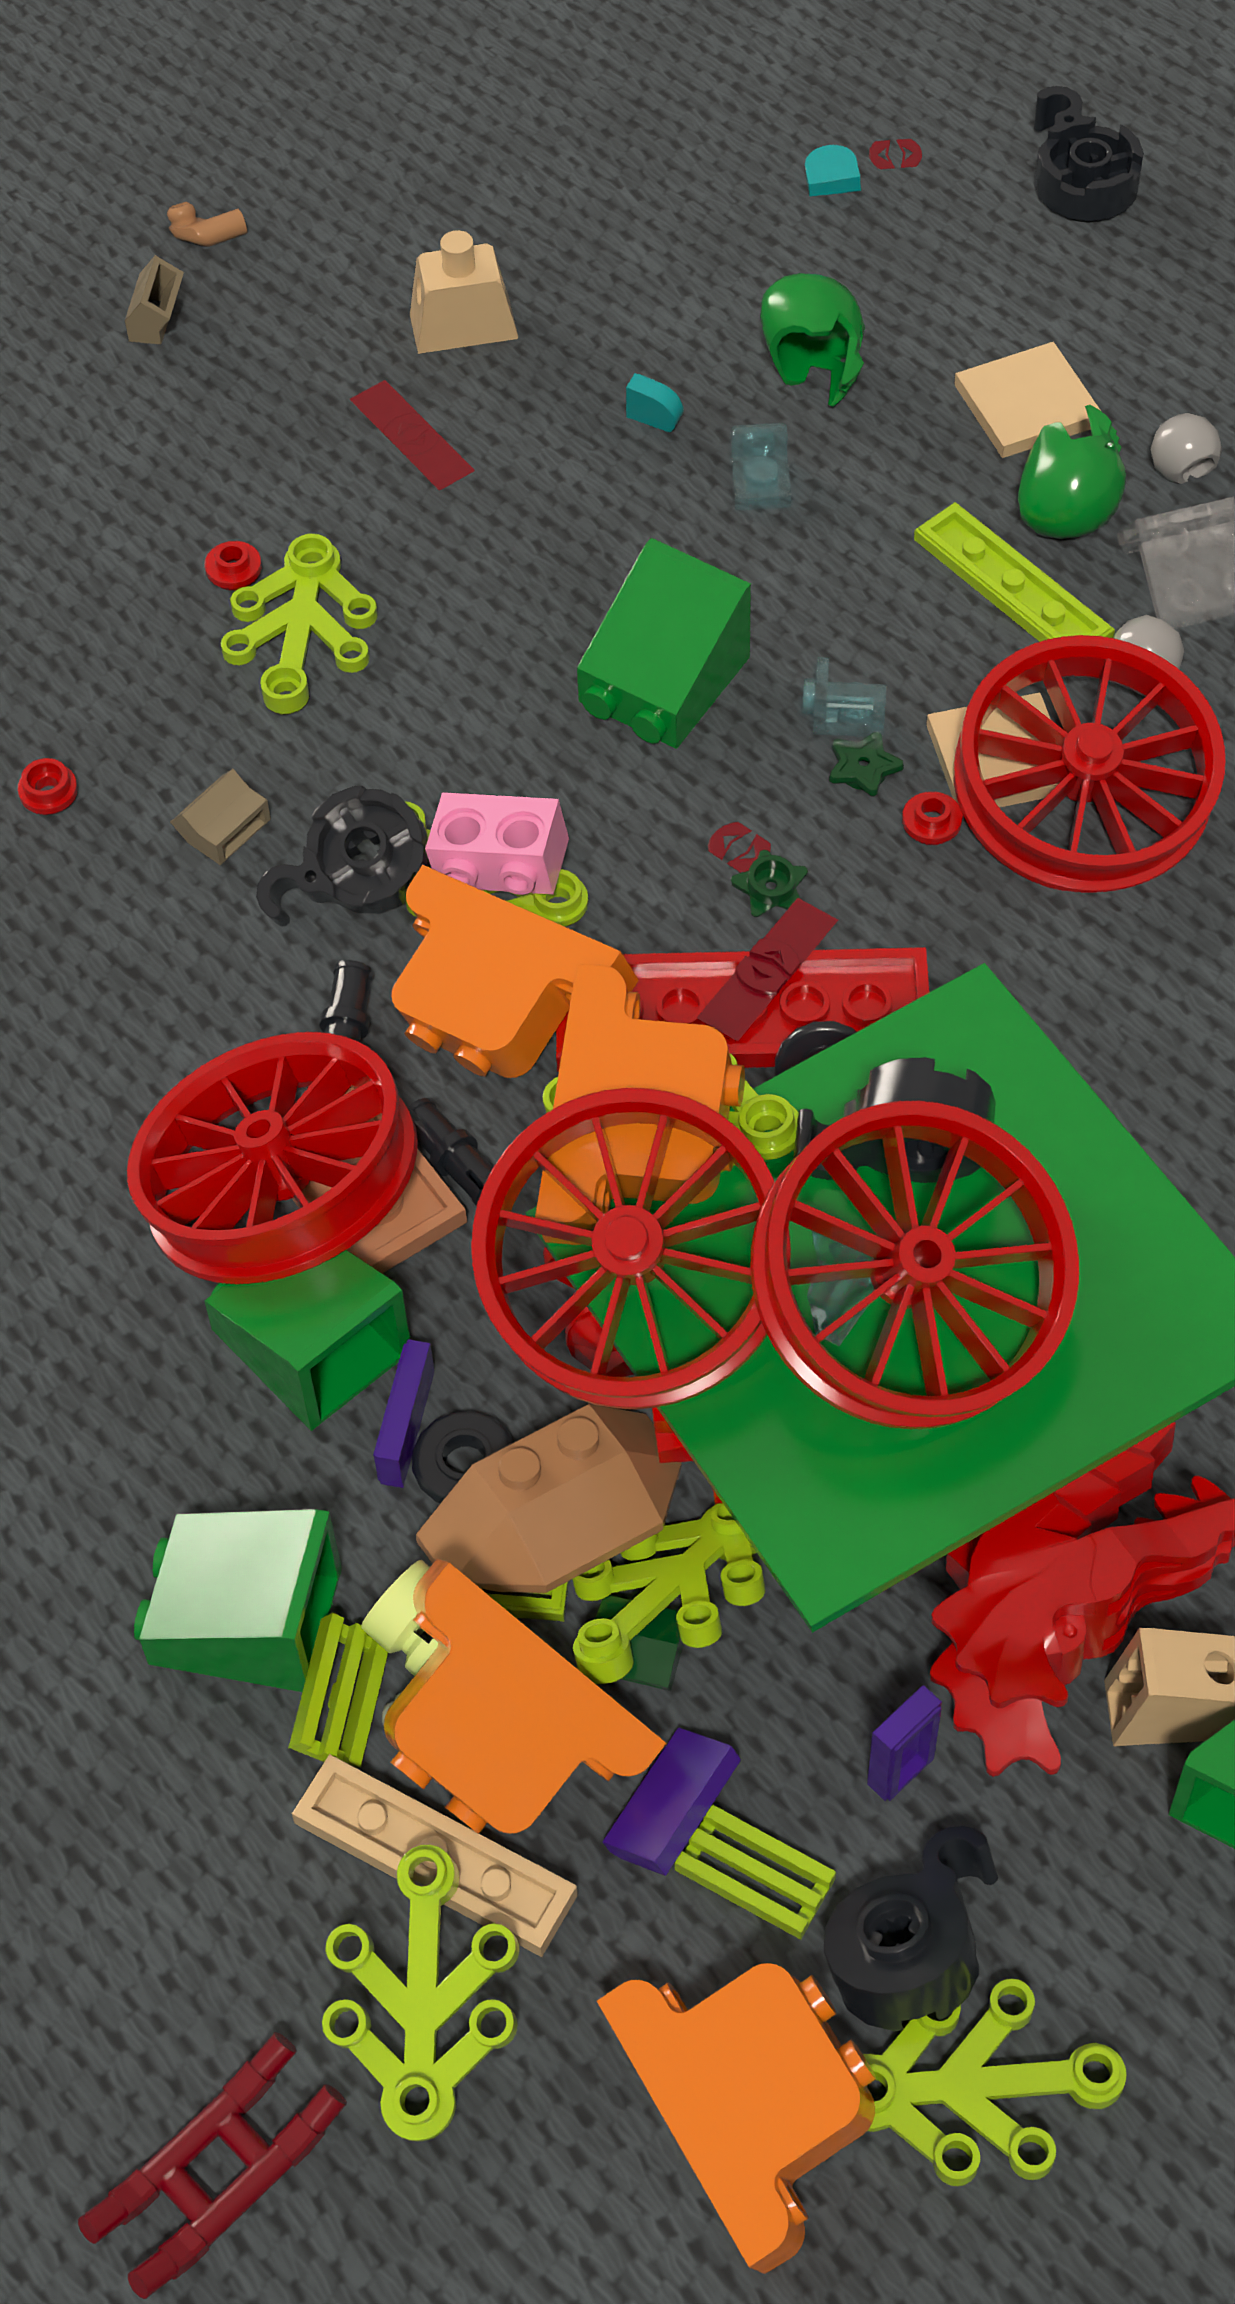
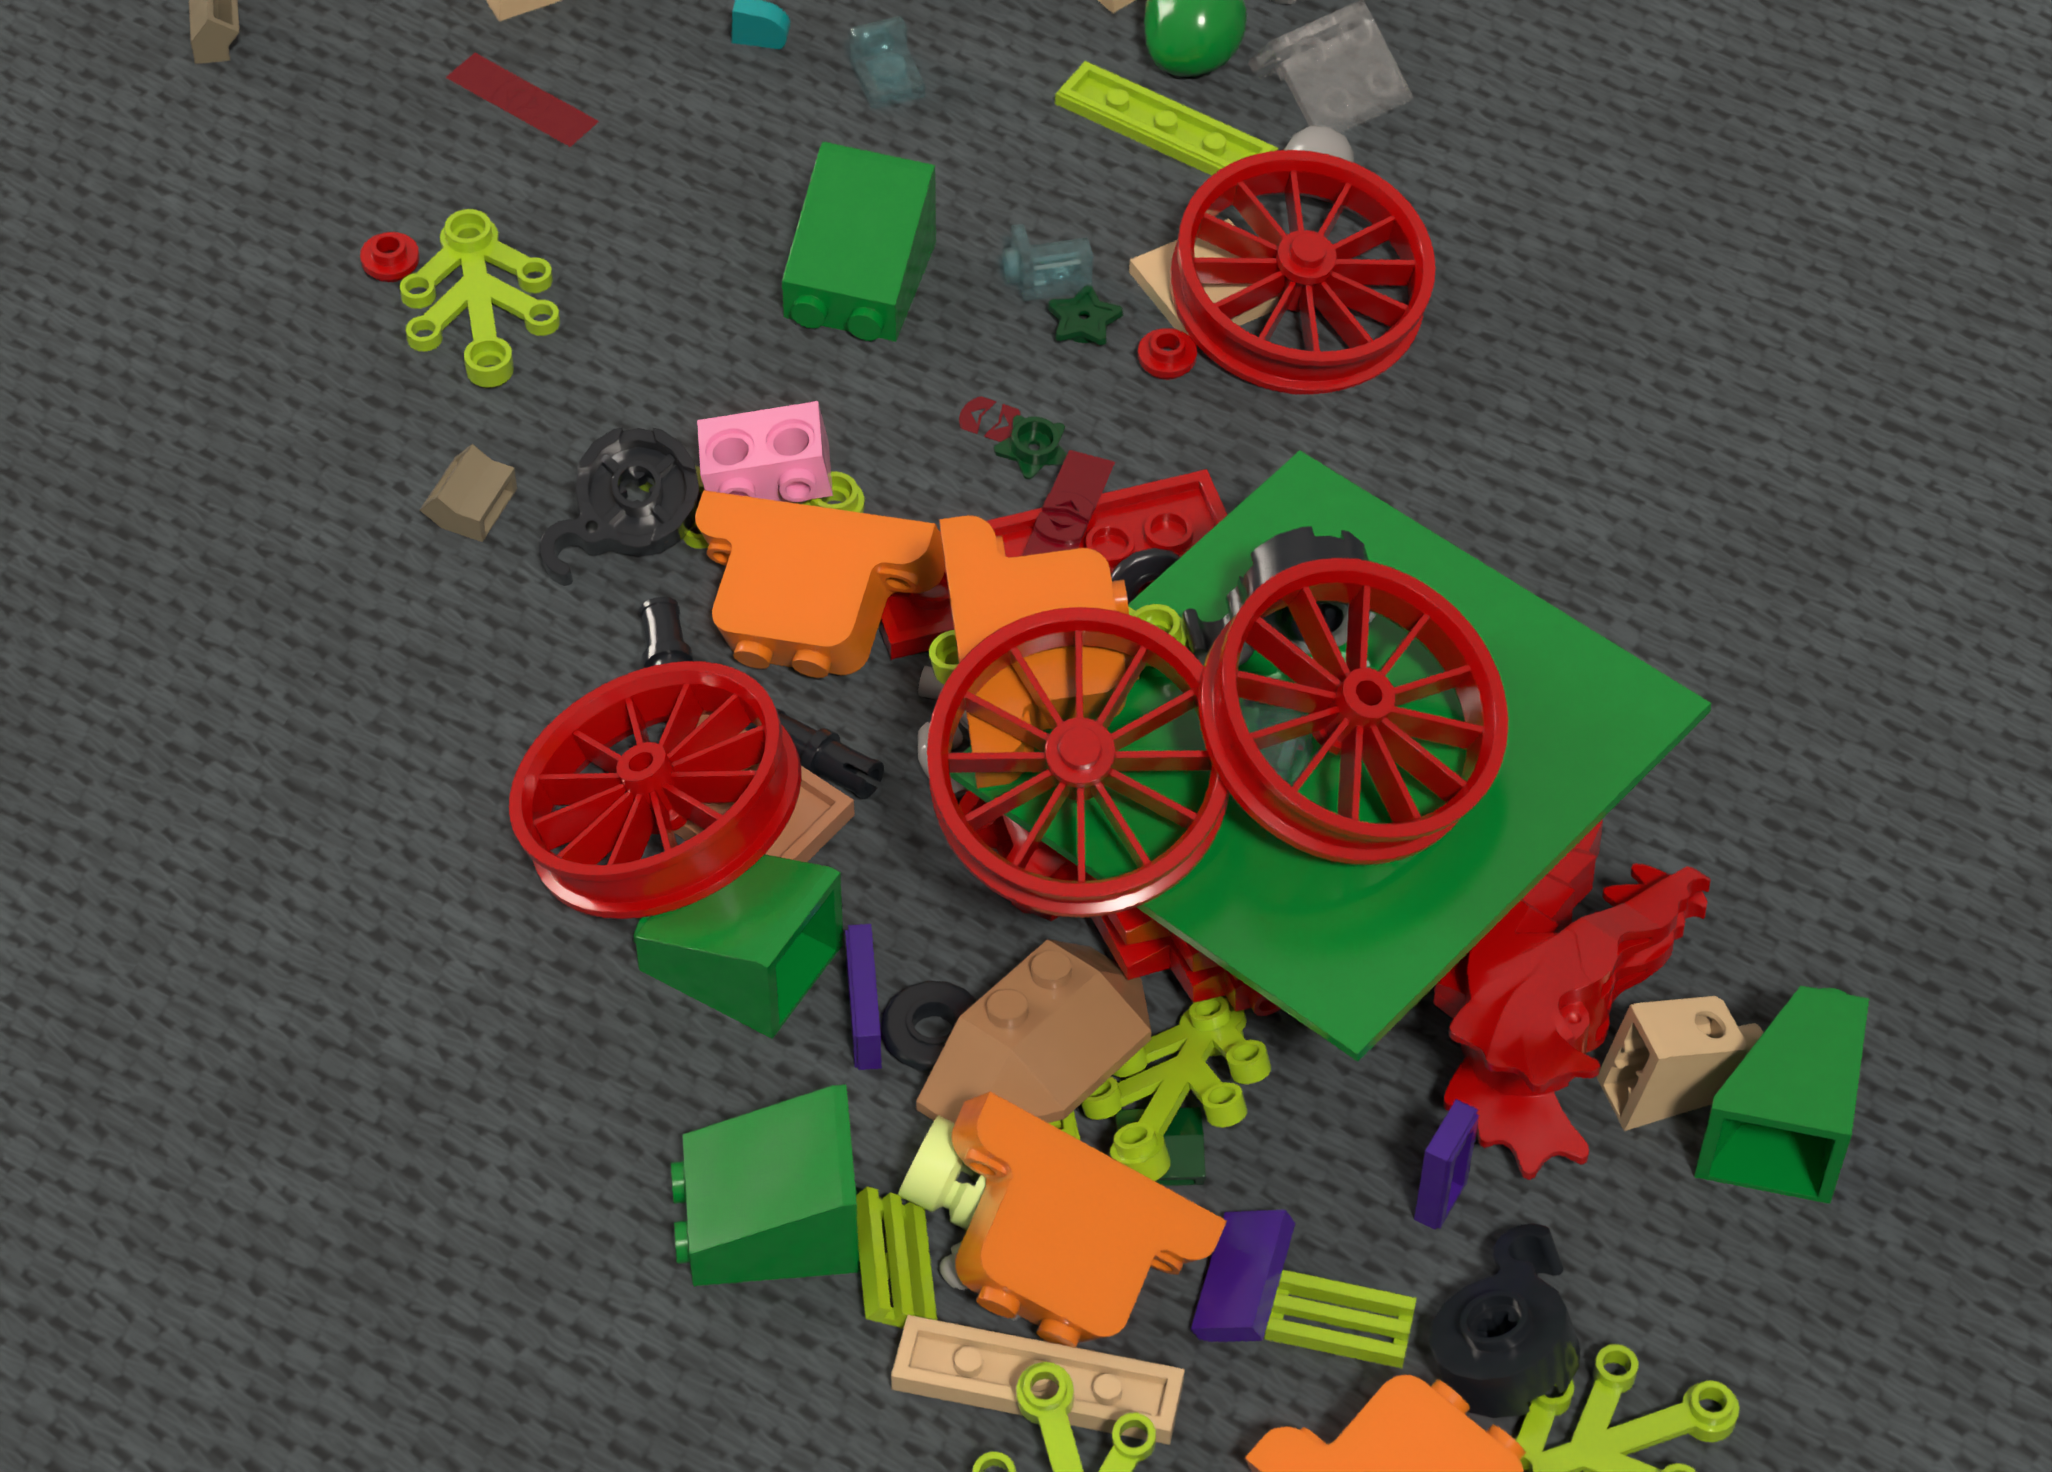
camera: 20 degrees left, 5 degrees down
(47, 773) = (276, 490): red plate -> none

